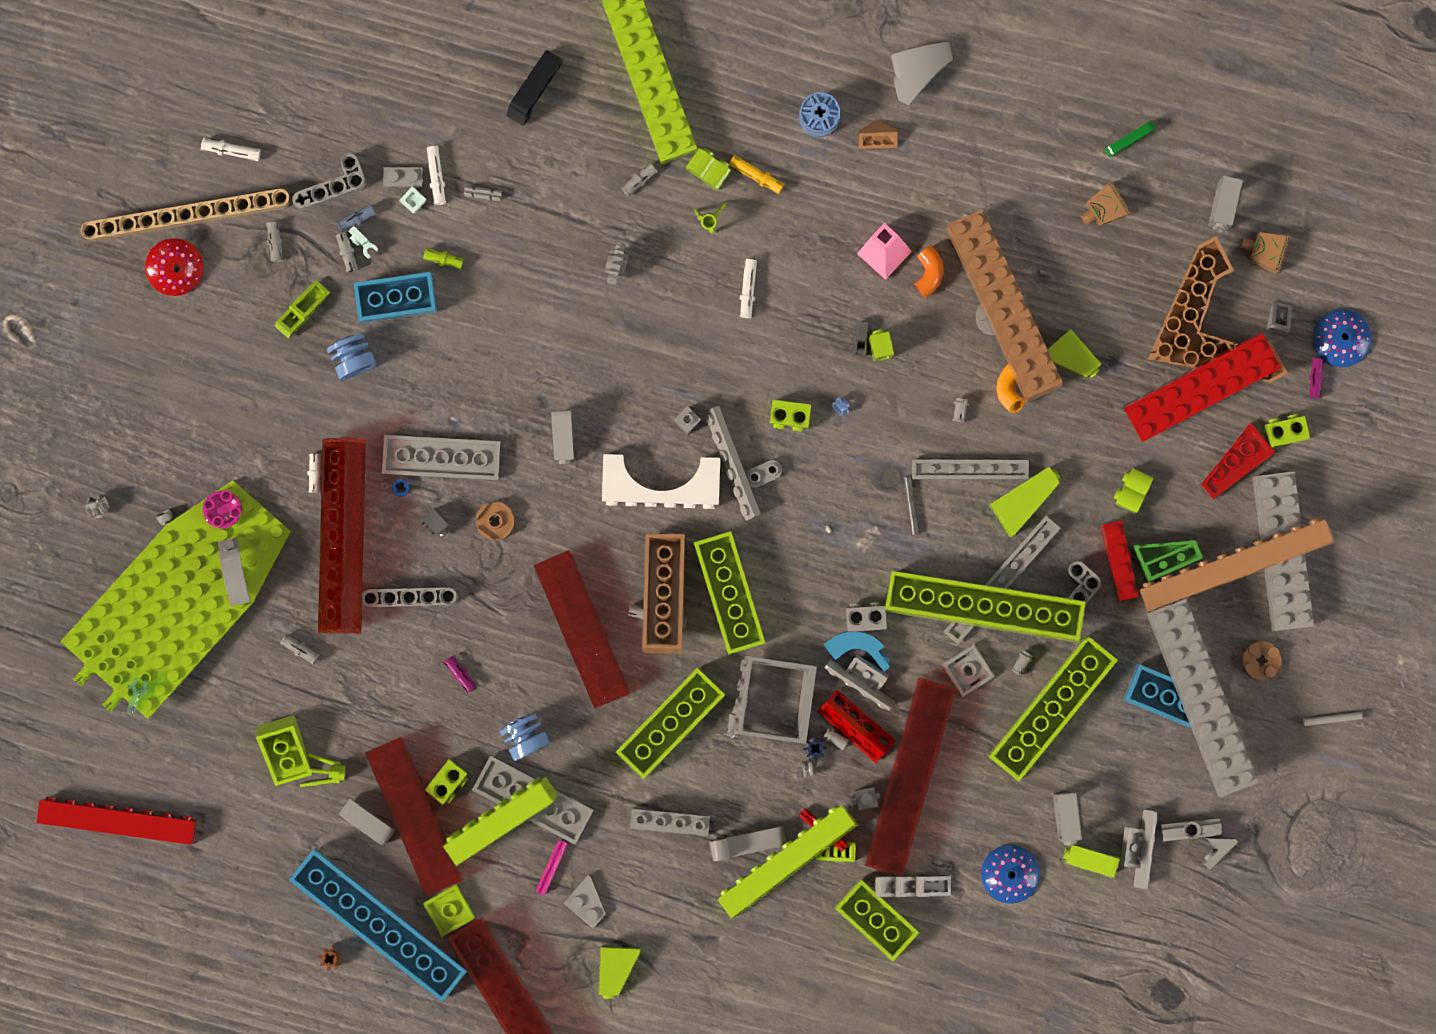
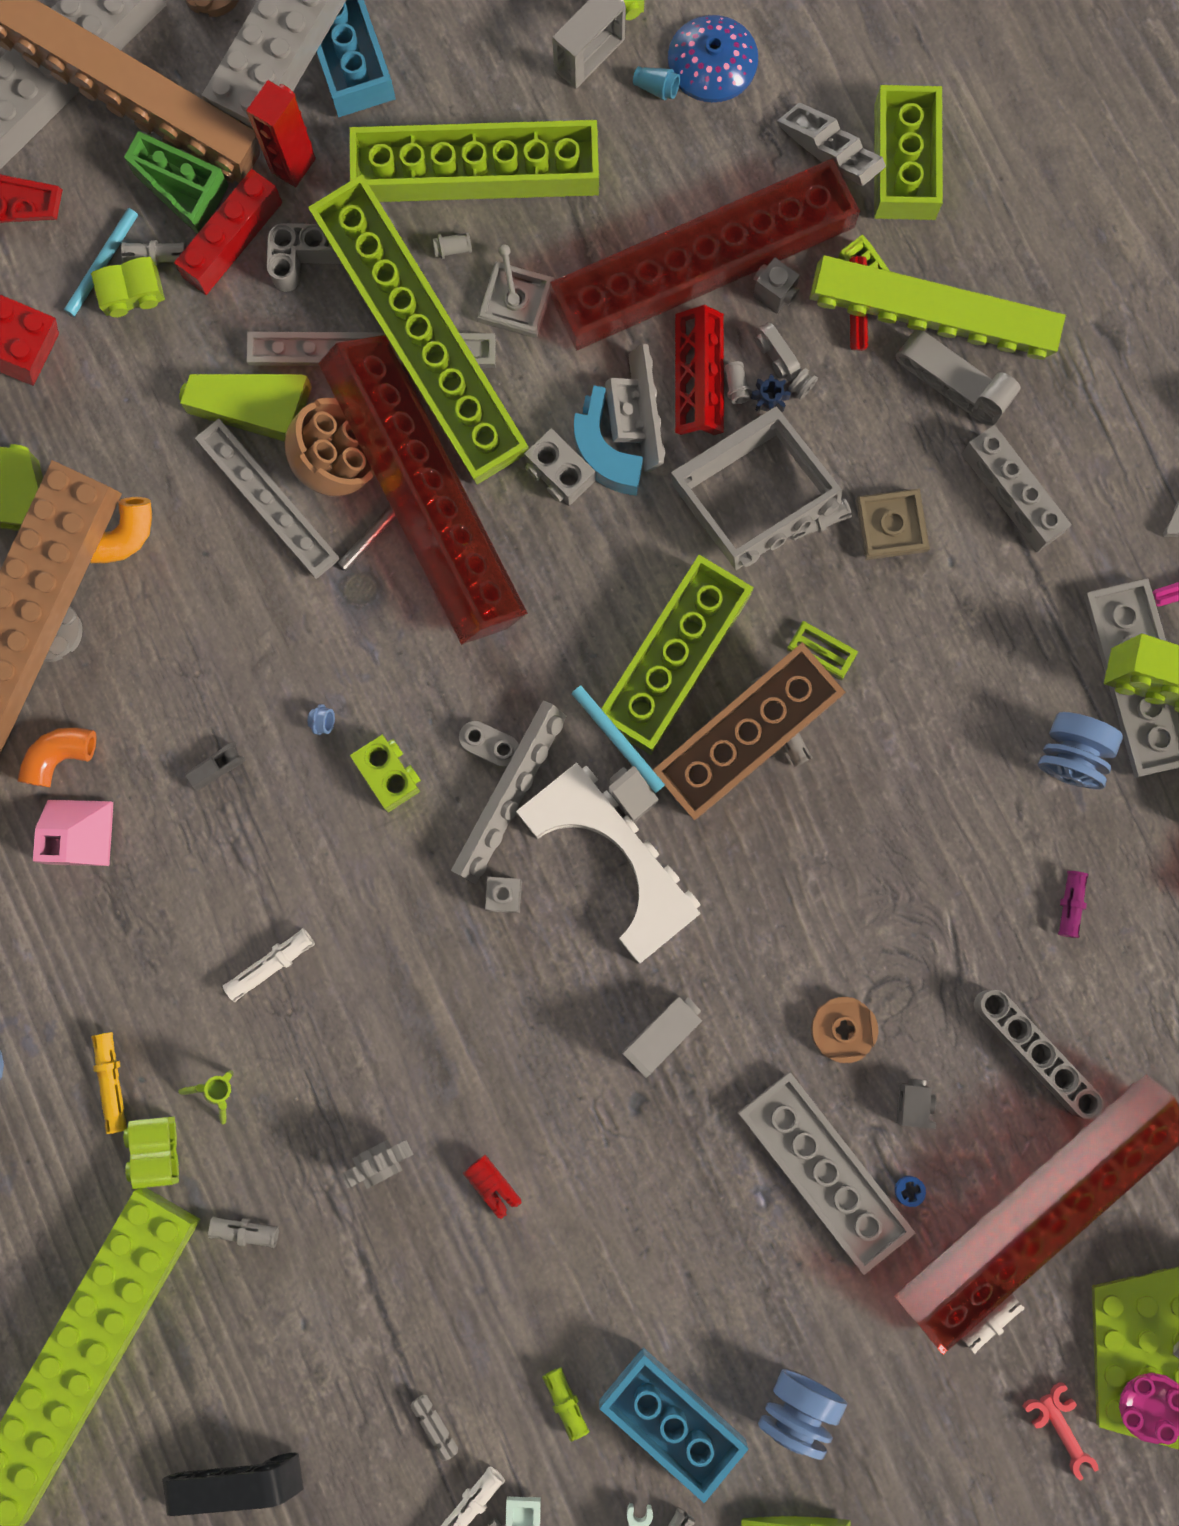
camera: 130 degrees left, 5 degrees down
(257, 467) = (1050, 1409): none -> coral bar
(568, 305) = (487, 1180): none -> red hinge
(582, 629) = (882, 799): clear red brick -> none
(670, 723) = (899, 589): lime brick -> none
(682, 517) = (632, 793): none -> light grey slope
(689, 660) = (834, 671): none -> lime tile
(704, 750) = (892, 524): none -> dark tan plate
(712, 530) = (617, 738): none -> medium azure bar
(841, 771) = (784, 361): none -> light grey plate
(881, 345) = (199, 732): lime brick -> none
(907, 543) = (422, 488): none -> clear red brick
(960, 410) = (202, 571): light grey pin -> none
(963, 518) = (325, 450): none -> medium nougat cylinder
(967, 667) = (513, 298): none -> light grey hinge
(1019, 834) = (657, 81): none -> dark azure cone
(1137, 623) = (281, 132): none -> red brick
(1141, 517) = (157, 251): none -> light grey pin
(1159, 488) = (101, 261): none -> medium azure bar

